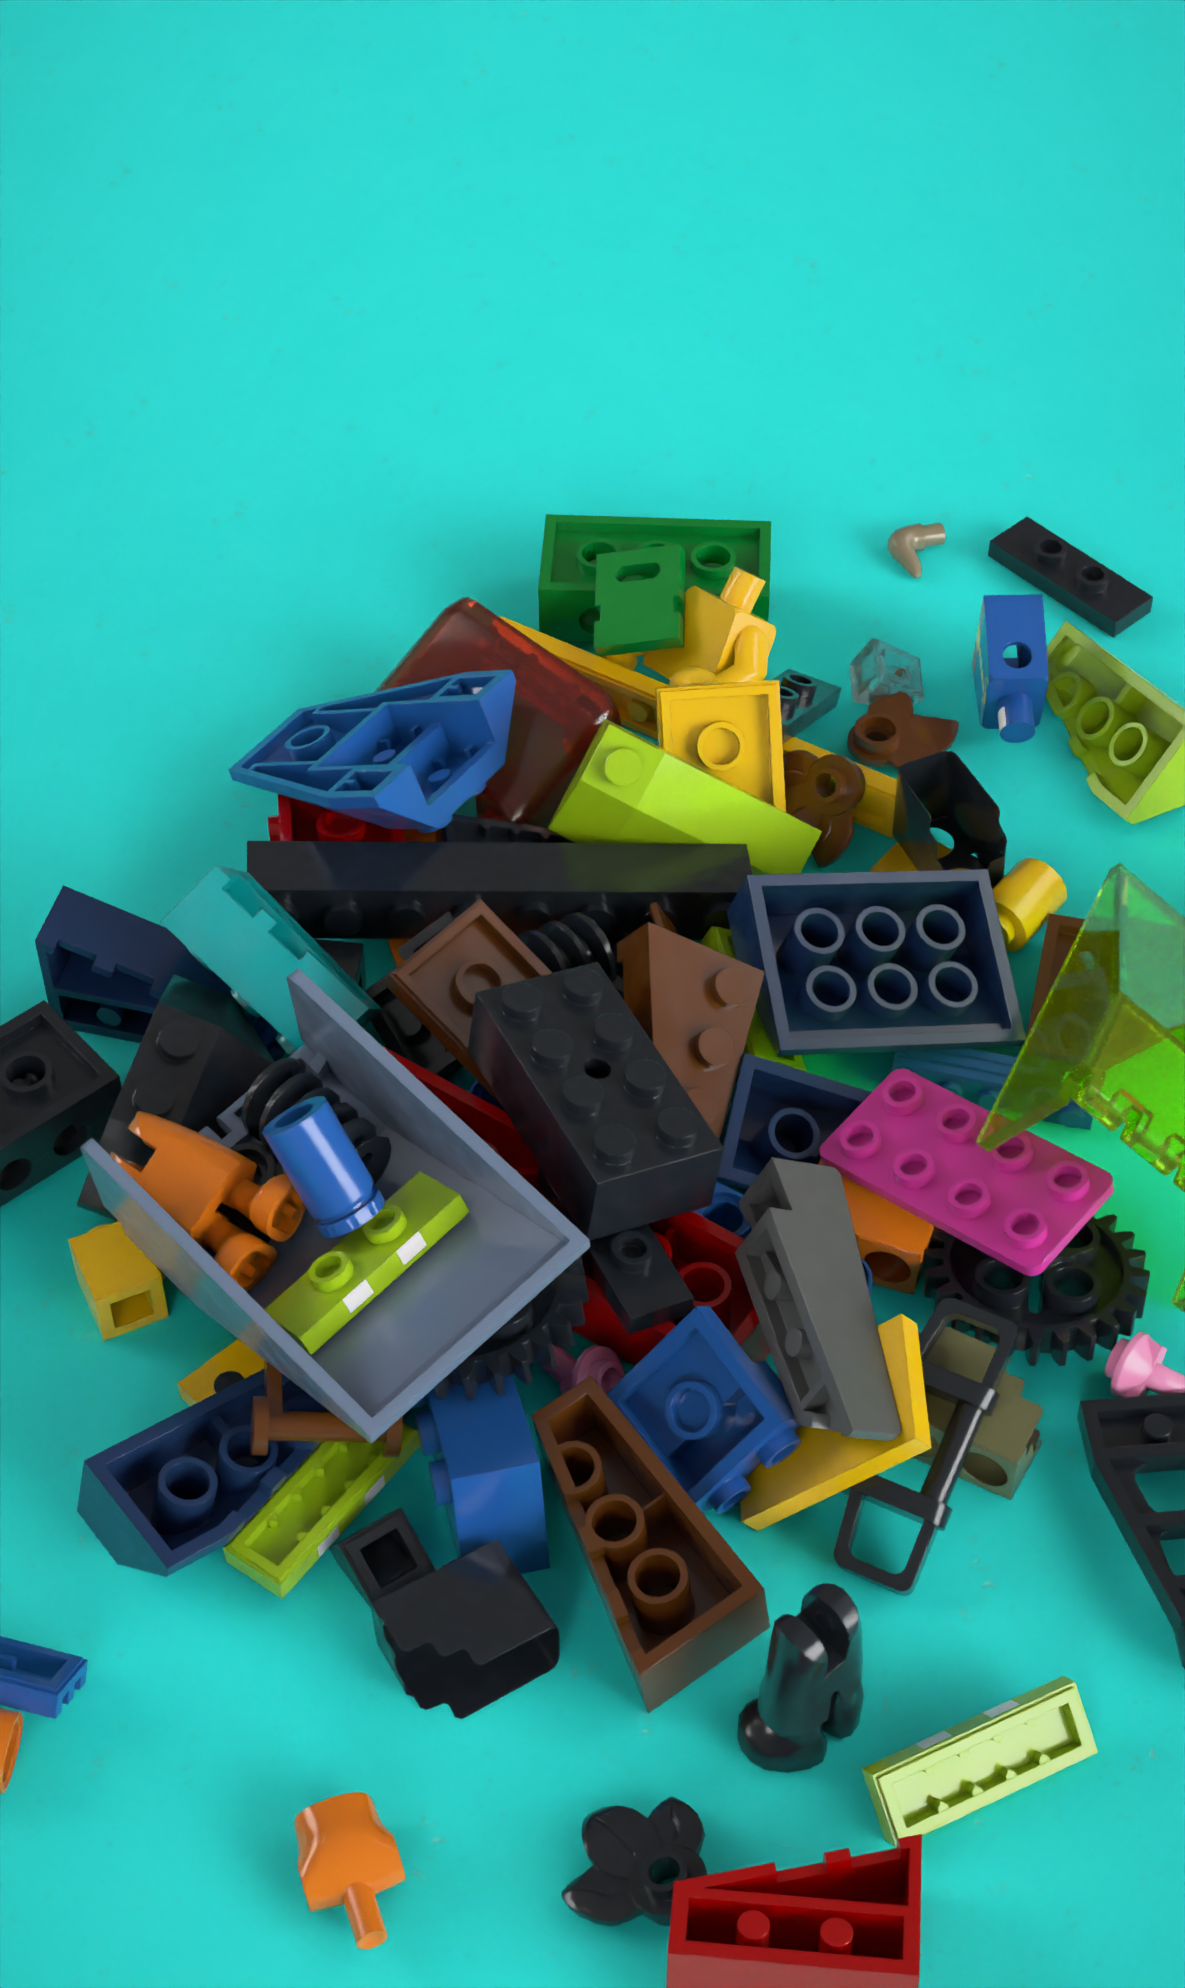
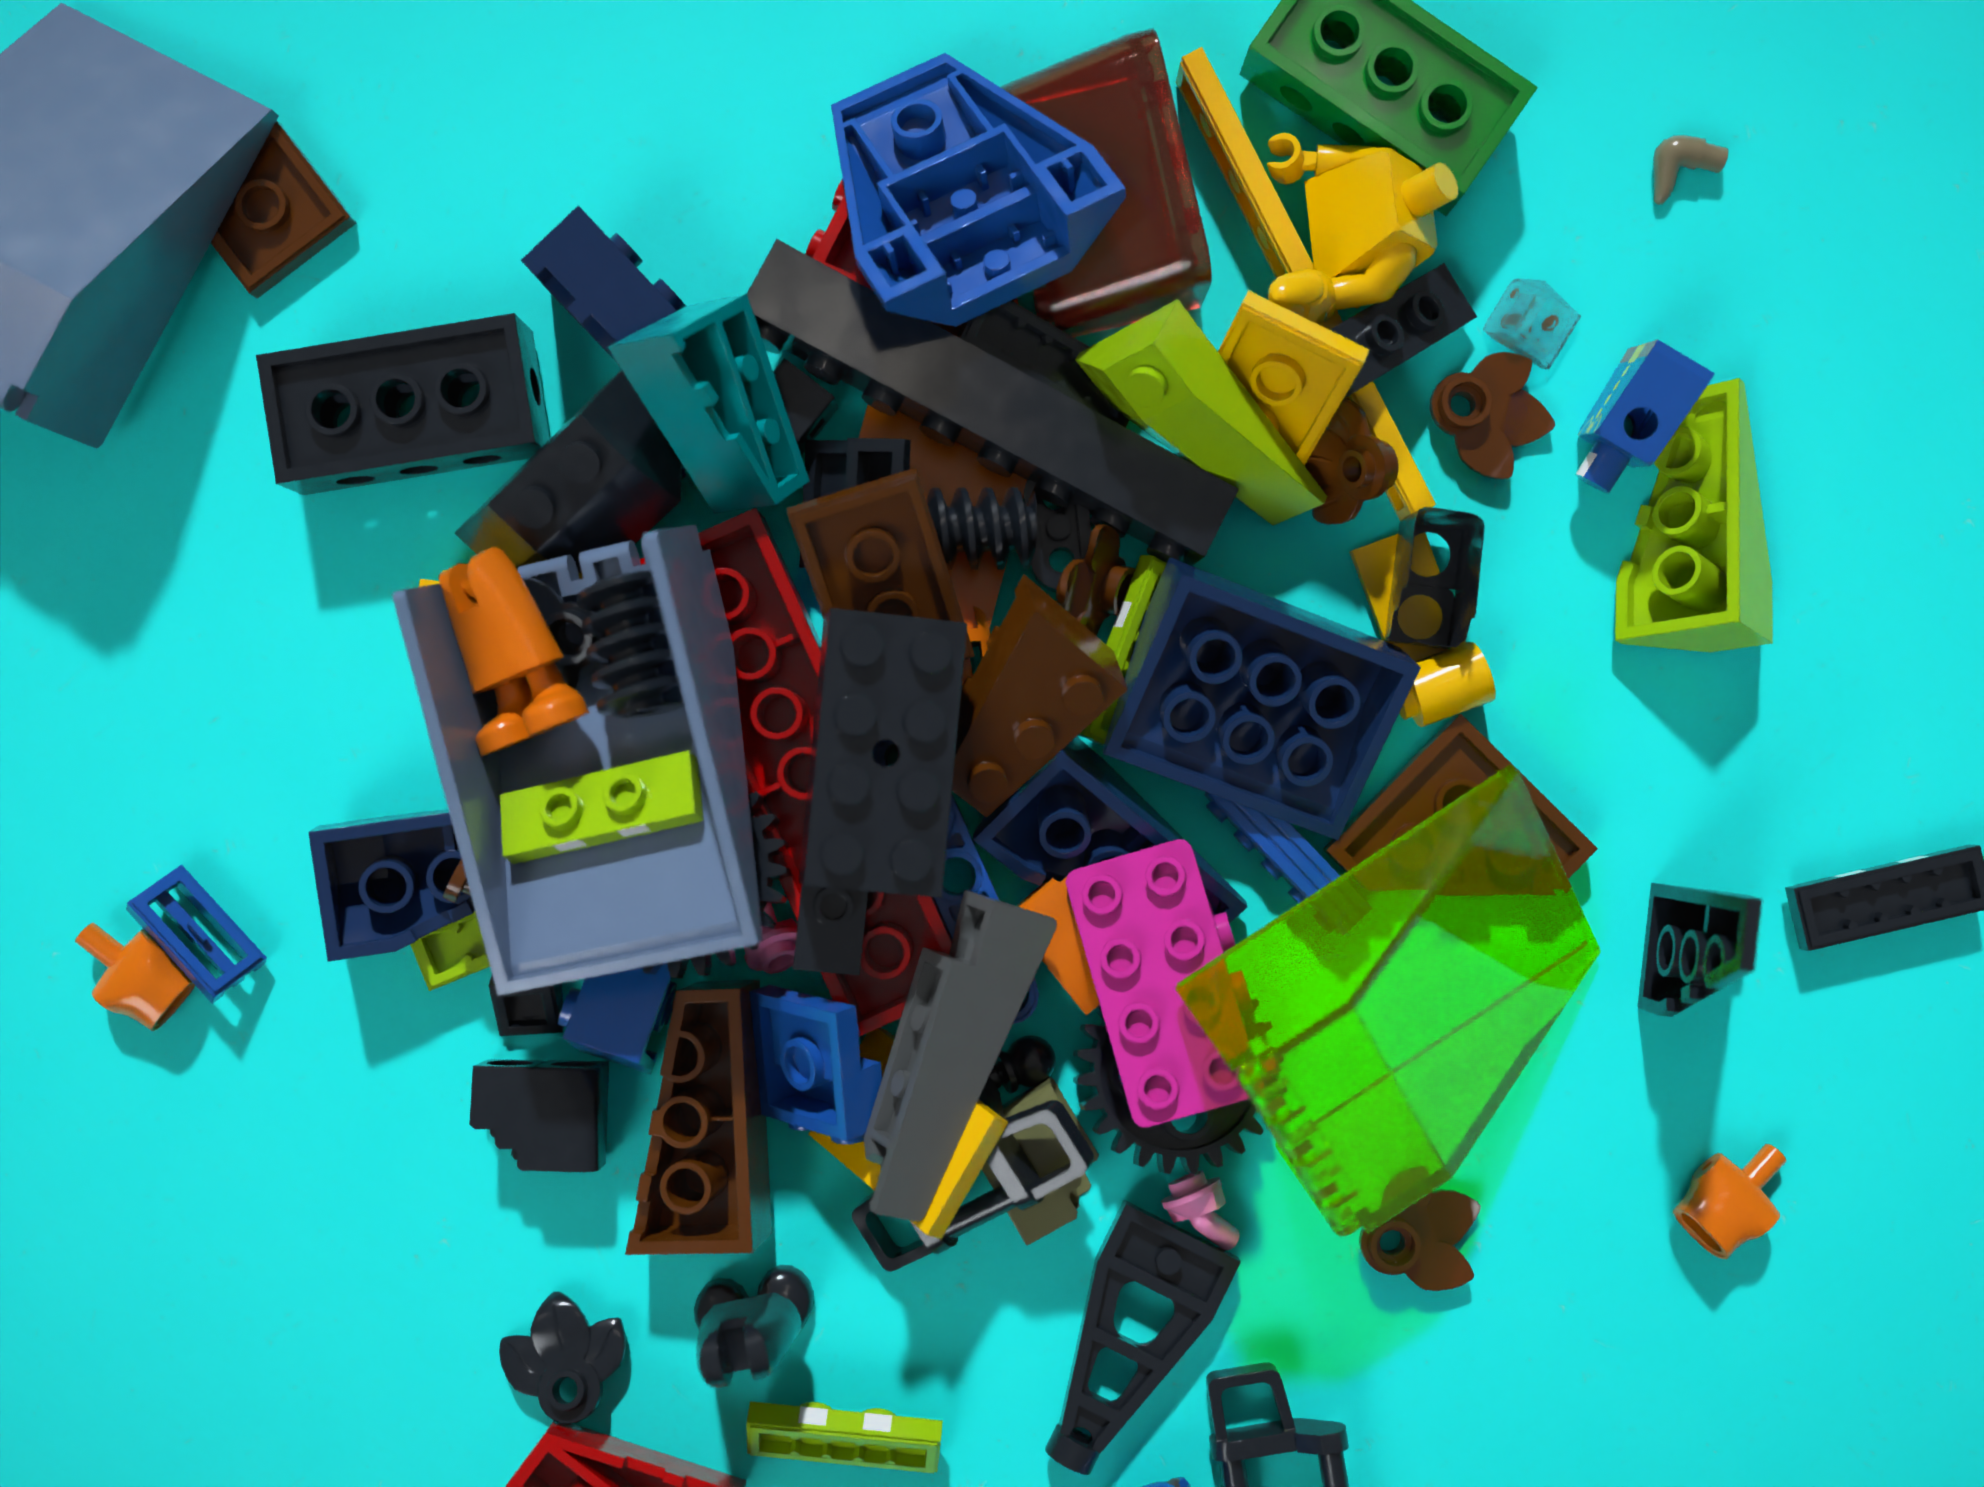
camera: 30 degrees right, 40 degrees up
(324, 1167) = (588, 728): blue piece -> none
(348, 1860) = (363, 1236): orange piece -> none
(644, 611) = (1320, 145): green piece -> none
(1070, 576) = (1802, 296): black plate -> none

